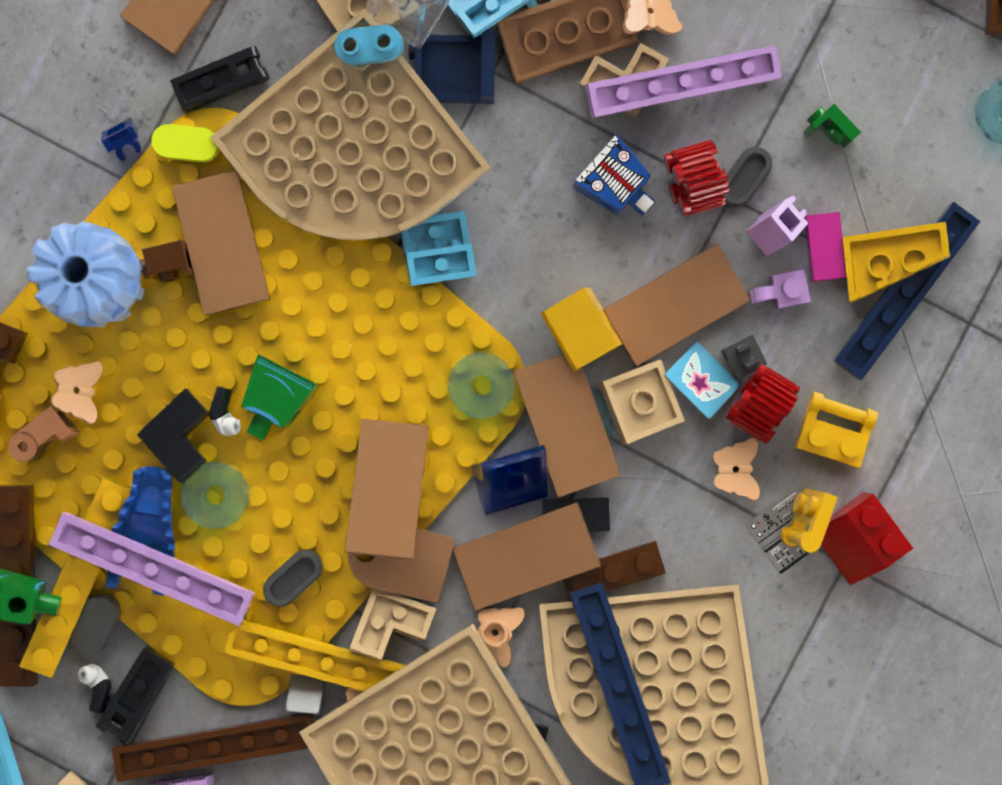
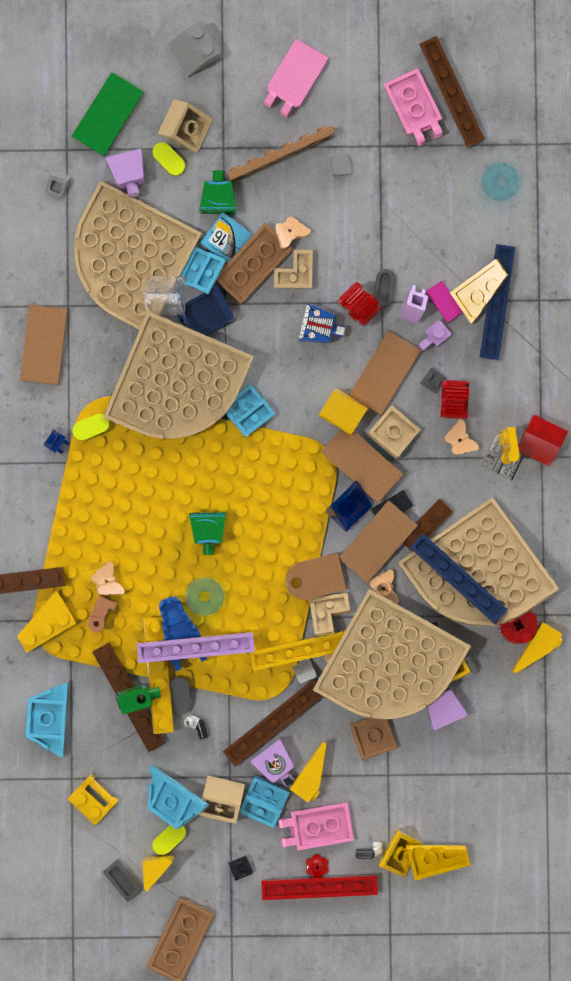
camera: 20 degrees left, 0 degrees up
(86, 274) = (69, 519): light blue wheel -> none
(135, 694) = (219, 719): black plate -> none
(166, 262) = (116, 492): reddish brown brick -> none
(168, 435) = (164, 578): black tile -> none
(219, 79) = (88, 385): black plate -> none
(220, 415) = (184, 554): arm -> none
(221, 243) = (137, 467): medium nougat tile -> none
(293, 578) = (266, 616): dark grey tile -> none
(367, 45) = (159, 328): medium azure plate -> none
(387, 489) = (290, 545): medium nougat tile -> none
(481, 365) = (308, 479): clear light blue tile -> none
(682, 81) = (326, 258): lavender plate -> none
(702, 380) = (418, 403): medium azure sticker -> none
(831, 440) = (501, 398): yellow plate -> none
(836, 124) = (417, 238): green bracket -> none

